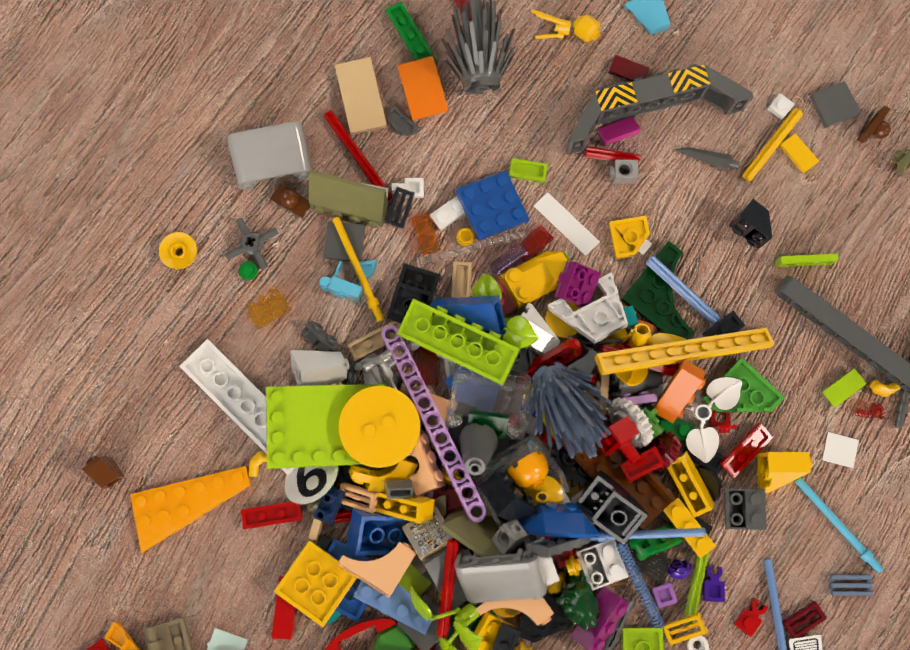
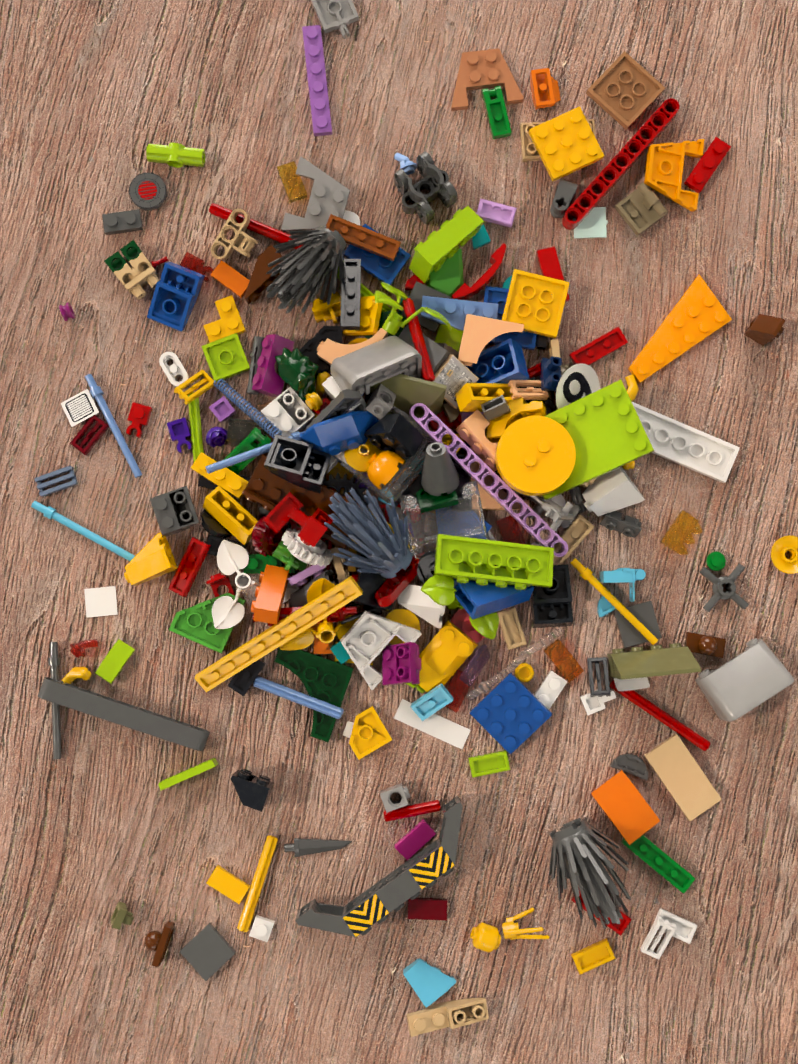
camera: 155 degrees right, 5 degrees up
(560, 241) = (431, 702): none -> medium azure plate

